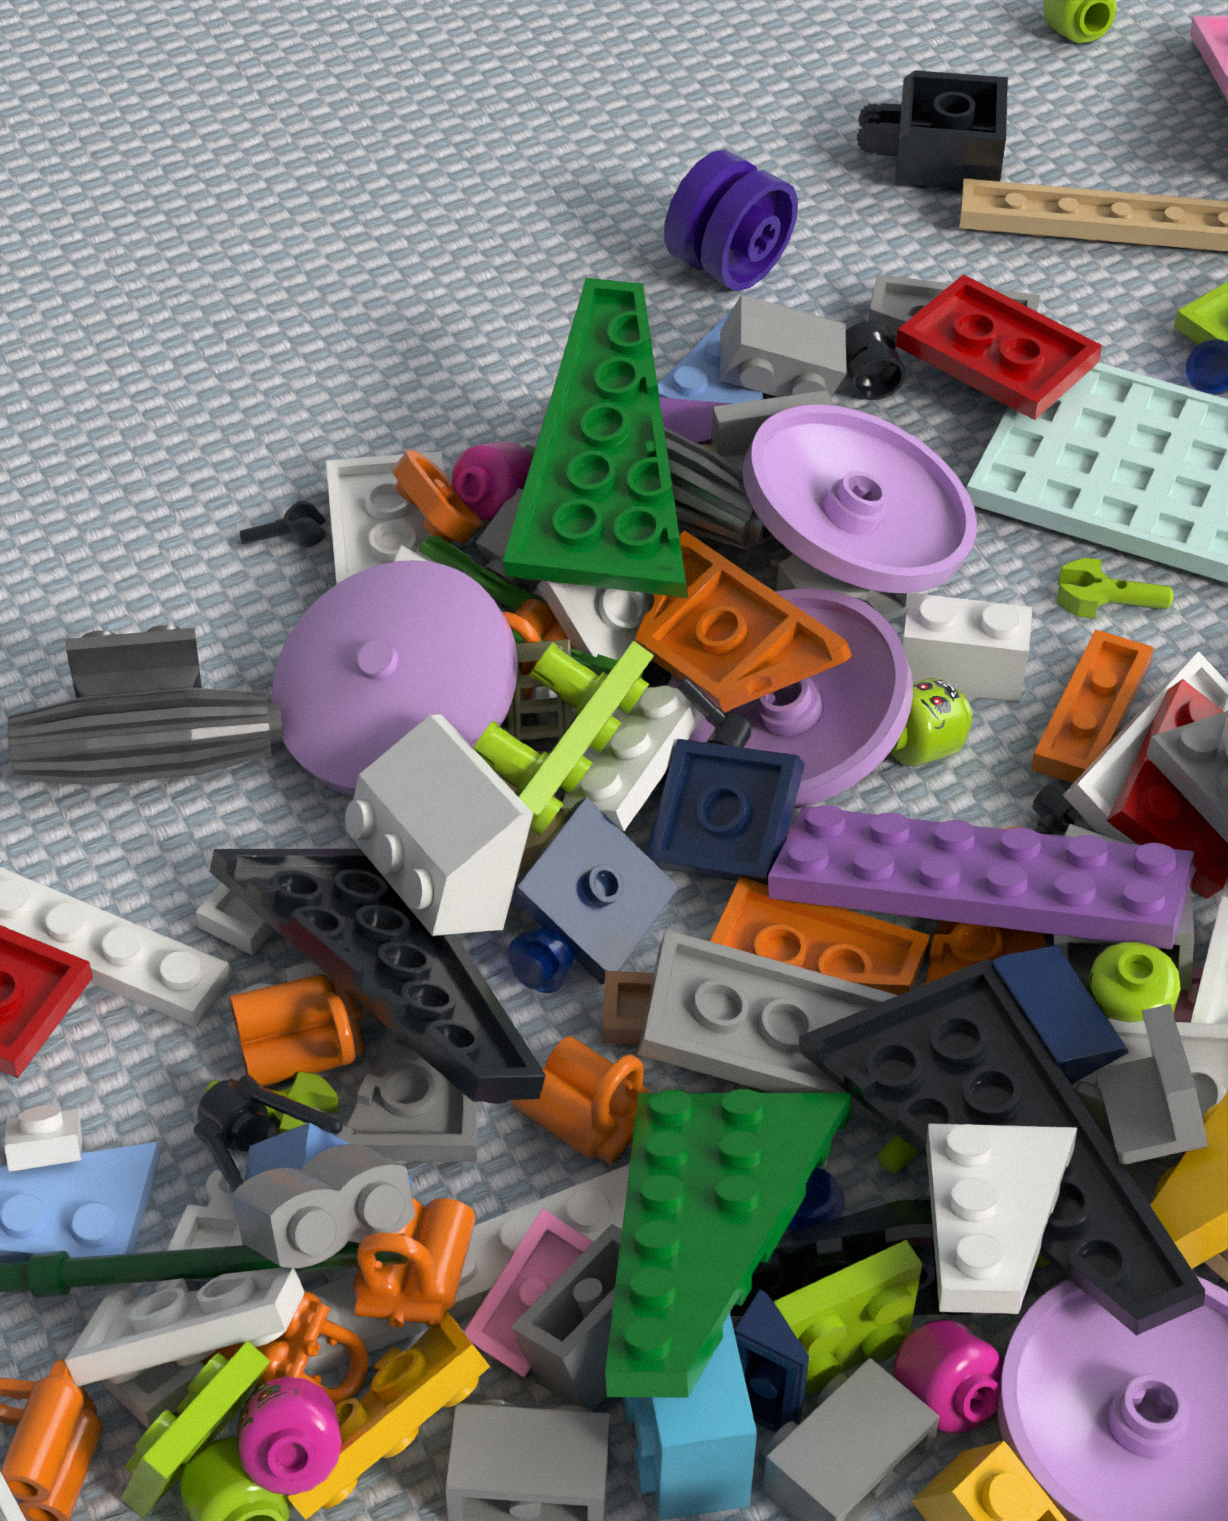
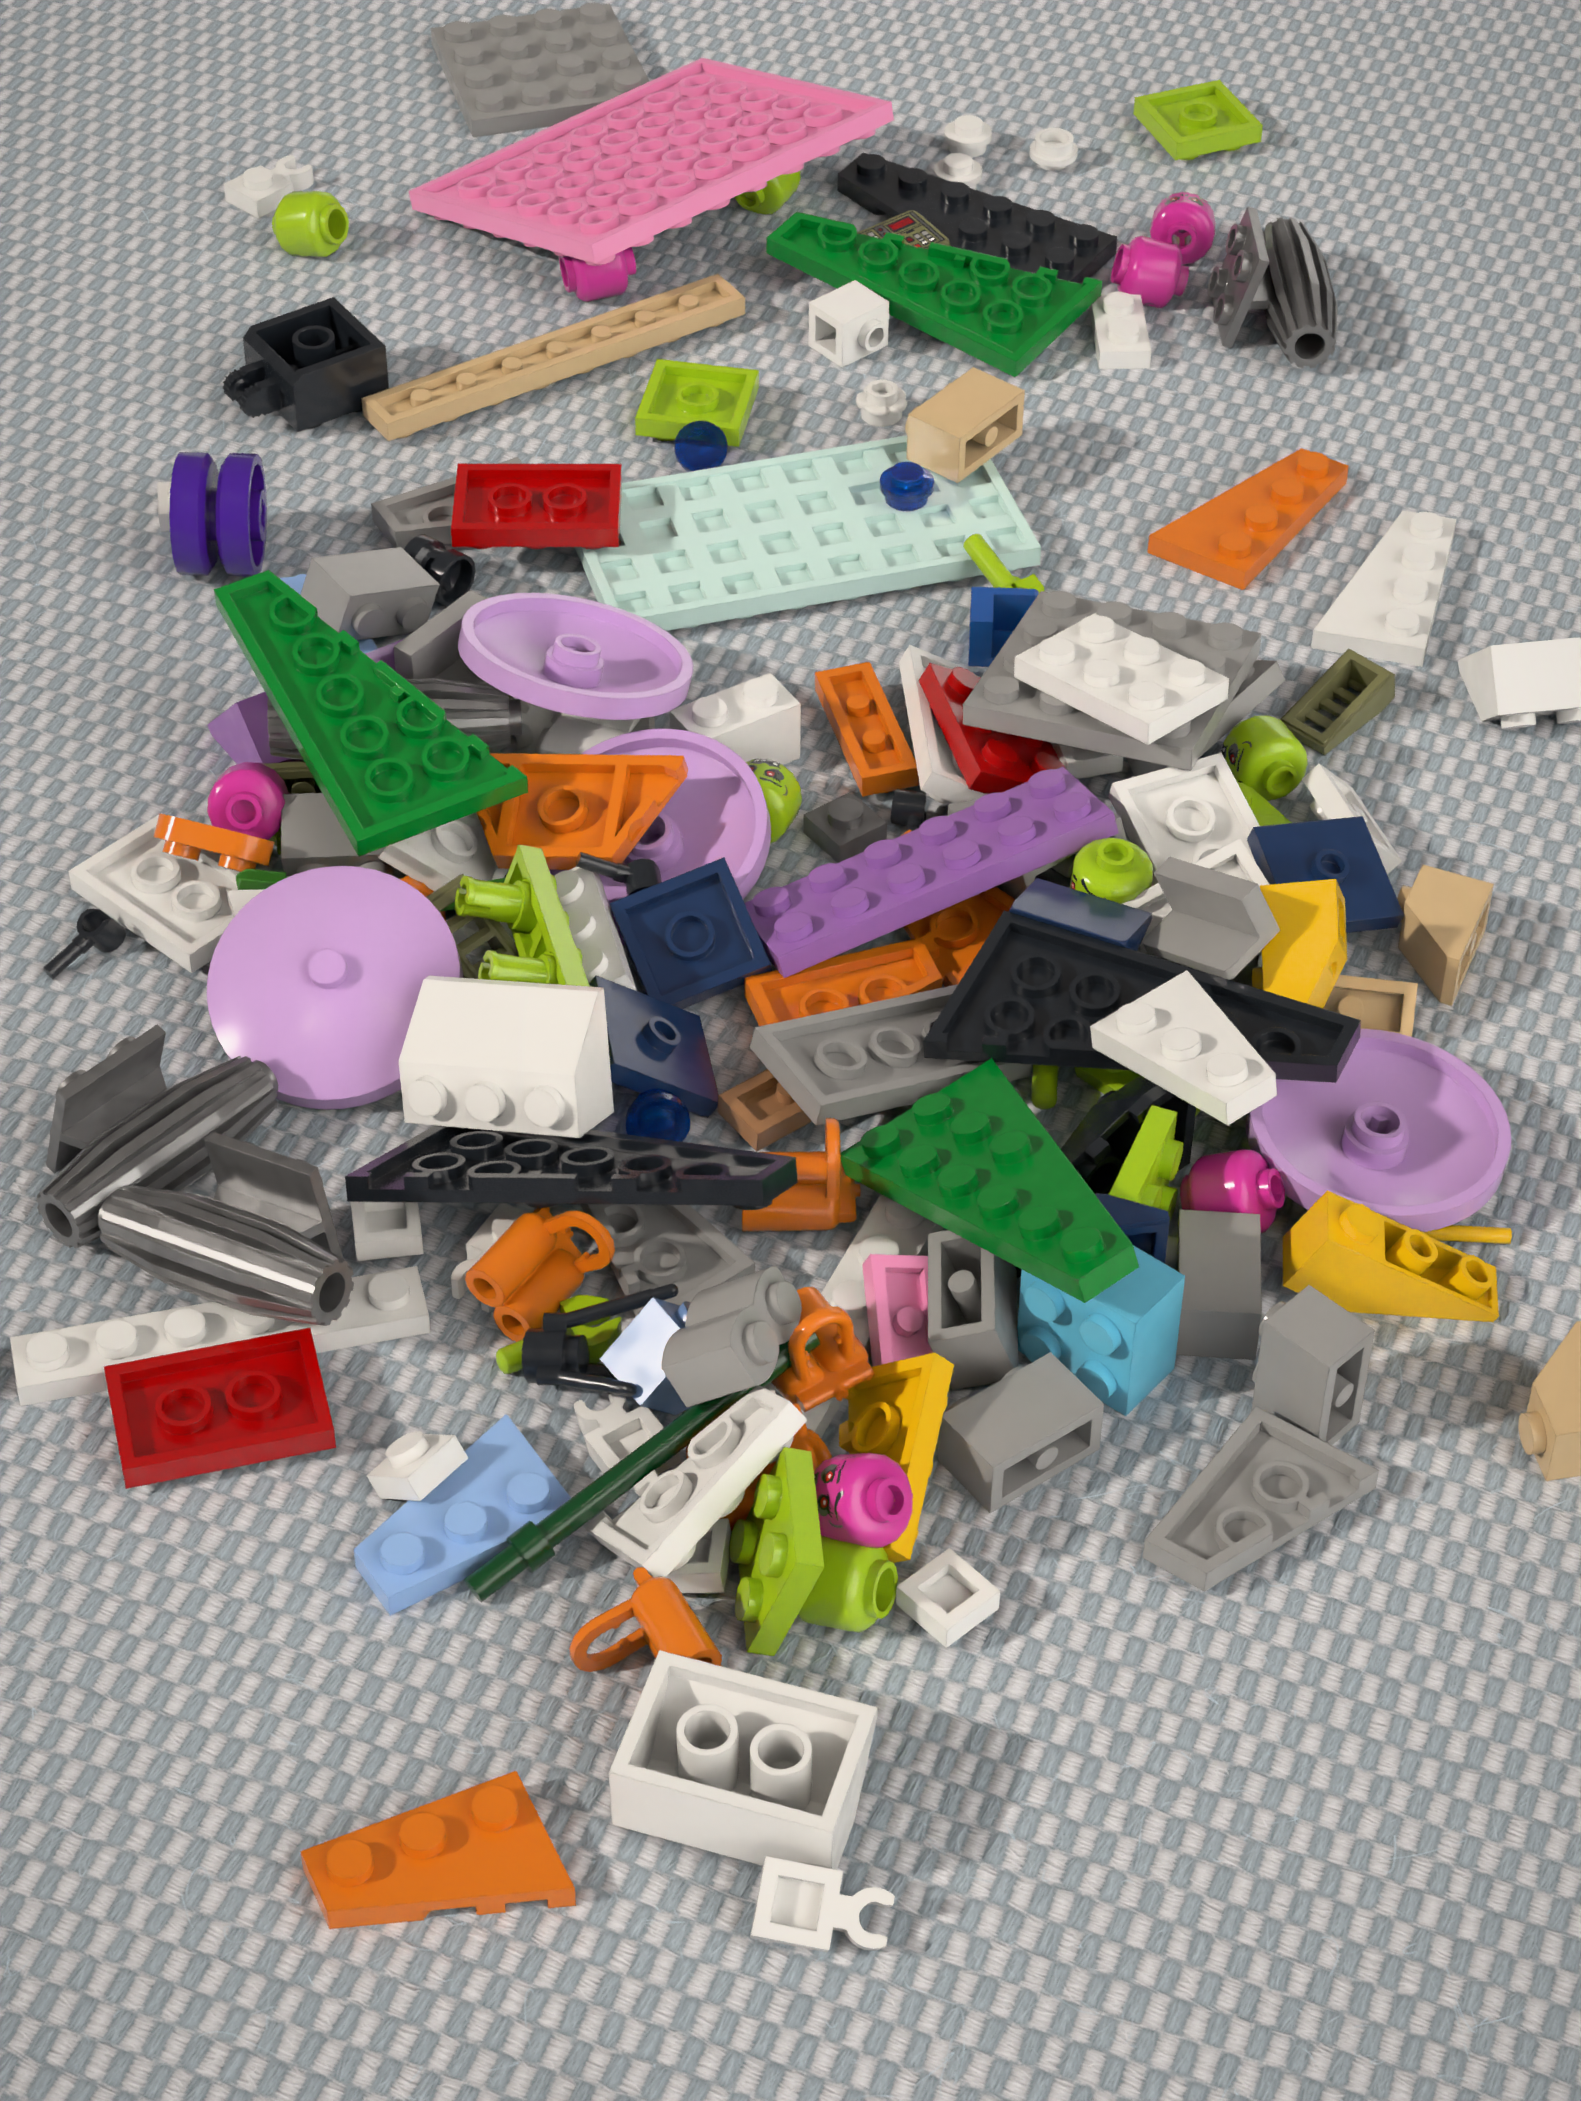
camera: 40 degrees left, 5 degrees down
(87, 854) = (253, 1247): none -> flat silver plate
(985, 790) = (844, 827): none -> flat silver plate
(1086, 587) = (774, 652): lime bar -> none

